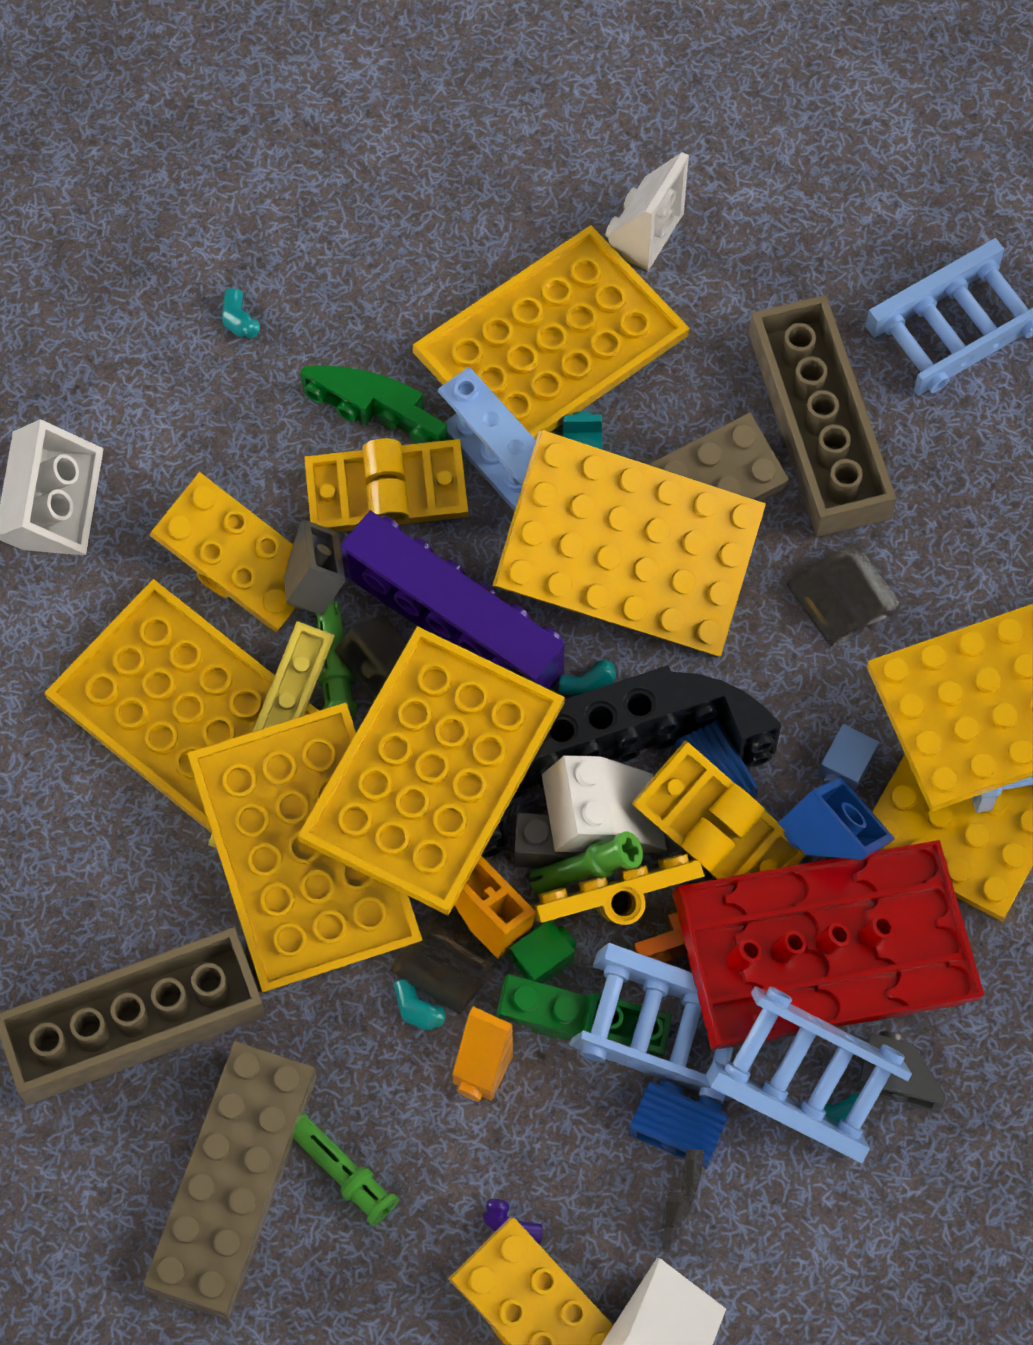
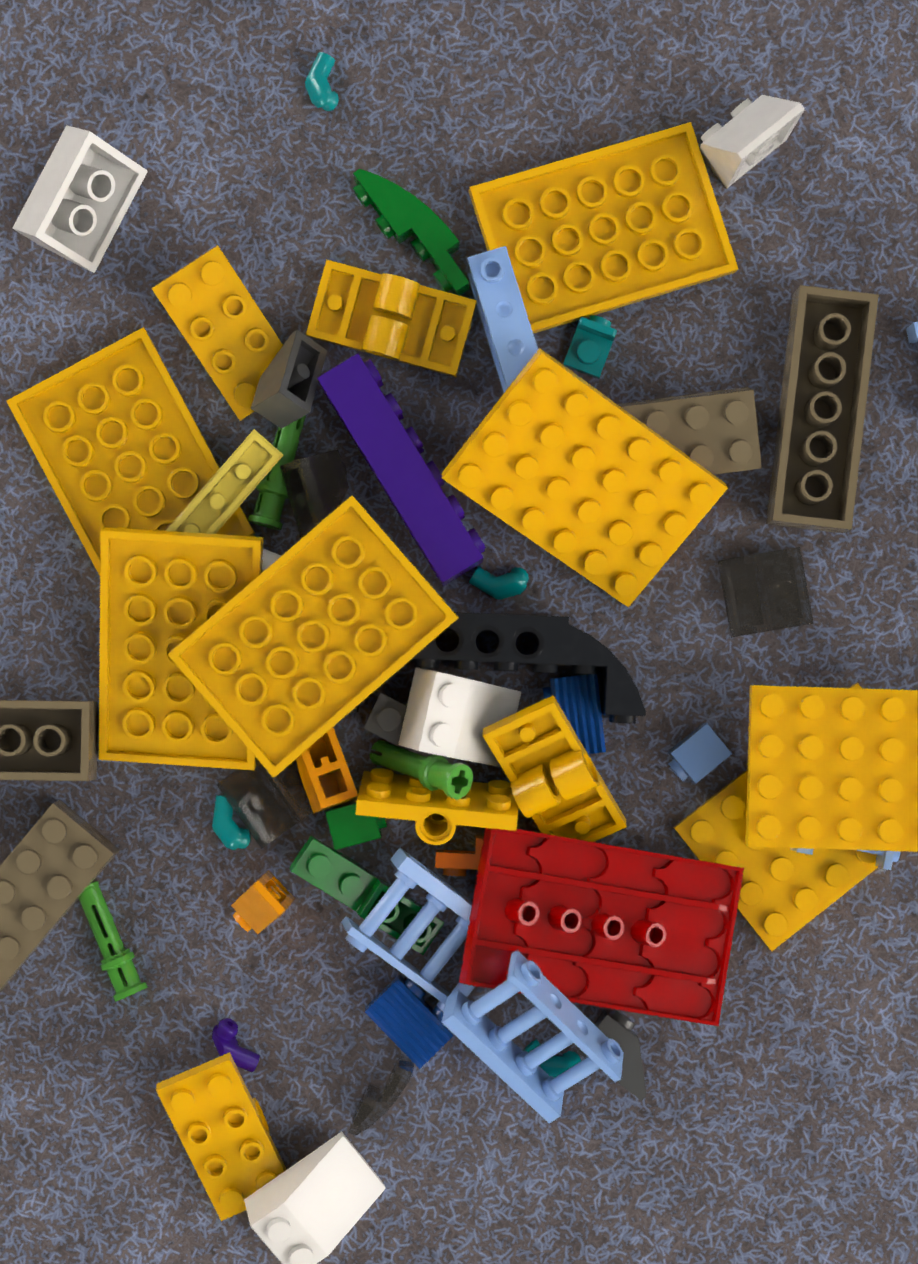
camera: 20 degrees right, 20 degrees up
(835, 824) = (657, 821): blue slope -> none

